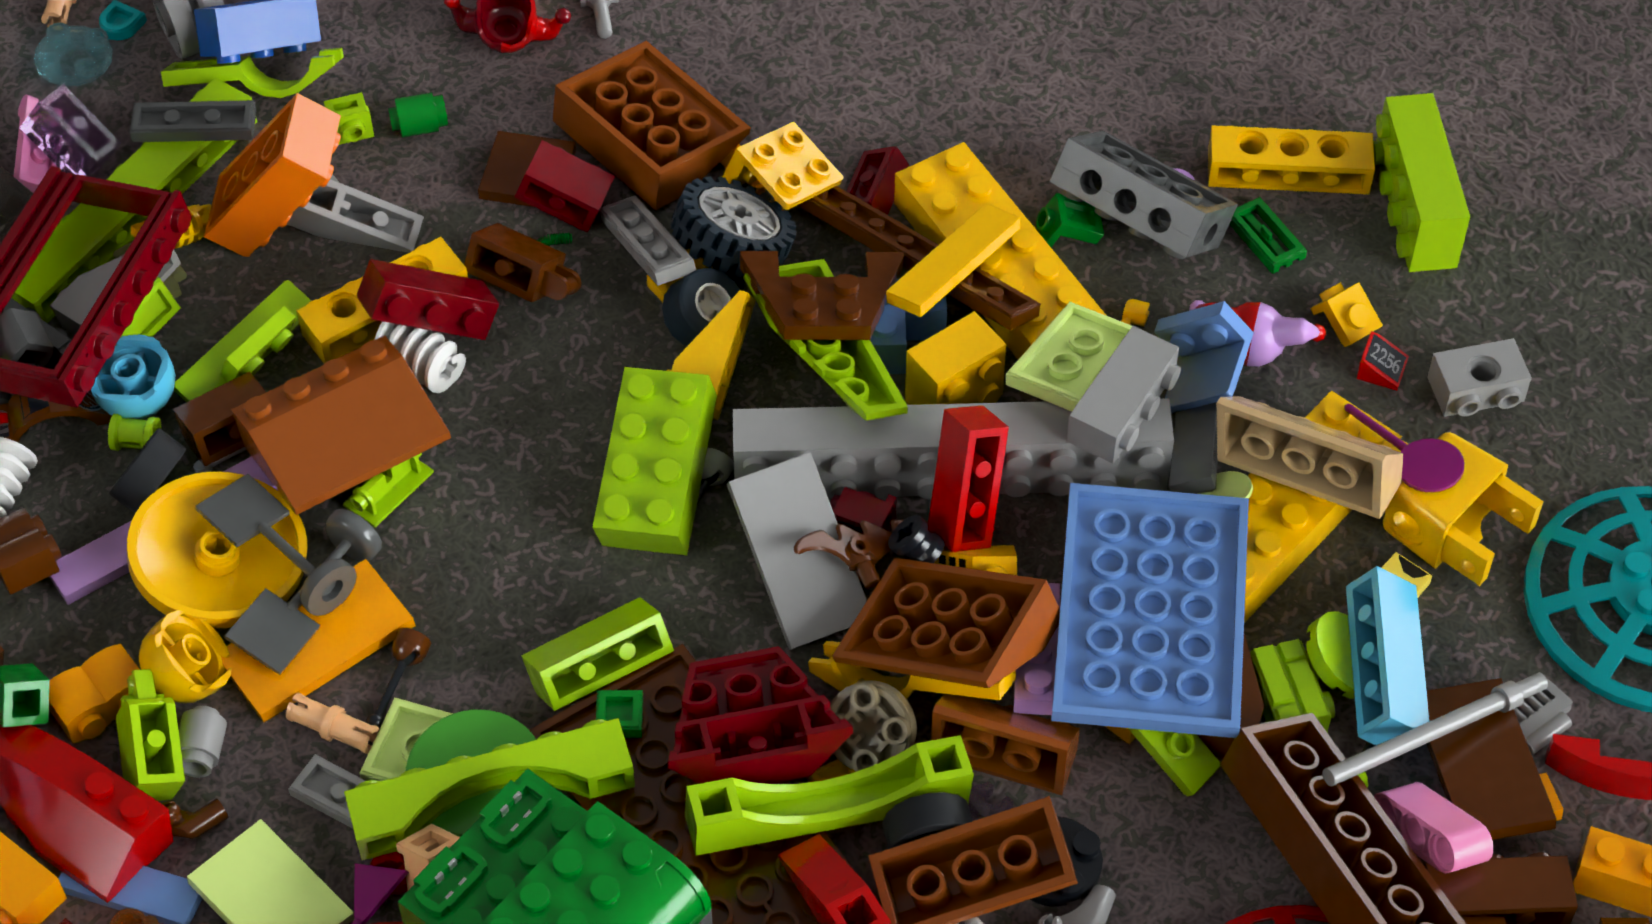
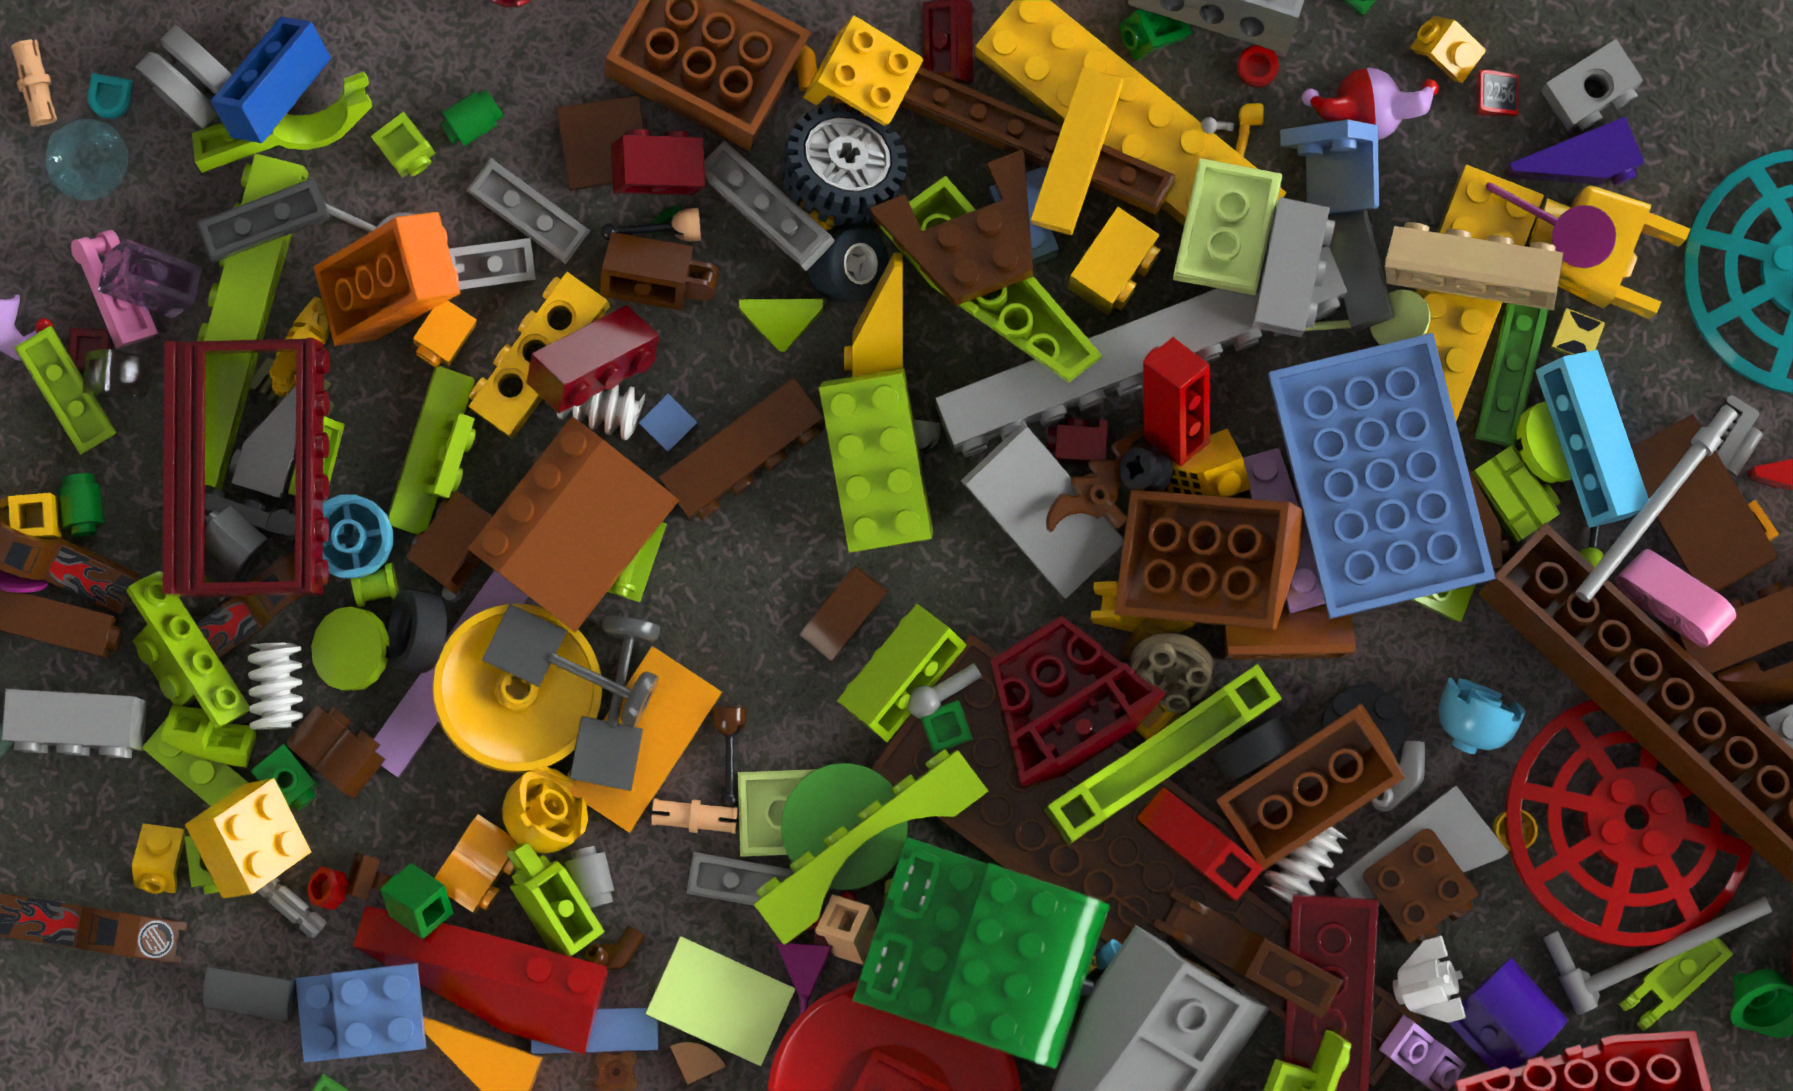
camera: 20 degrees left, 30 degrees up
(81, 474) = (350, 648): none -> lime tile
(305, 247) = (443, 334): none -> light orange brick
(433, 199) = (528, 211): none -> light grey tile
(476, 393) = (668, 423): none -> medium blue tile
(531, 428) = (743, 449): none -> reddish brown brick
(560, 593) = (843, 613): none -> reddish brown slope
(570, 242) = (684, 226): none -> hinge
(610, 679) = (927, 699): none -> light grey bar
(624, 337) = (781, 319): none -> lime slope
(1089, 279) = (1210, 125): none -> light grey hinge
(1157, 280) = (1257, 66): none -> red tile
(1179, 878) = (1477, 716): none -> medium azure cylinder
(1325, 584) = (1510, 374): none -> bright green tile
(1476, 422) = (1589, 158): none -> dark purple slope

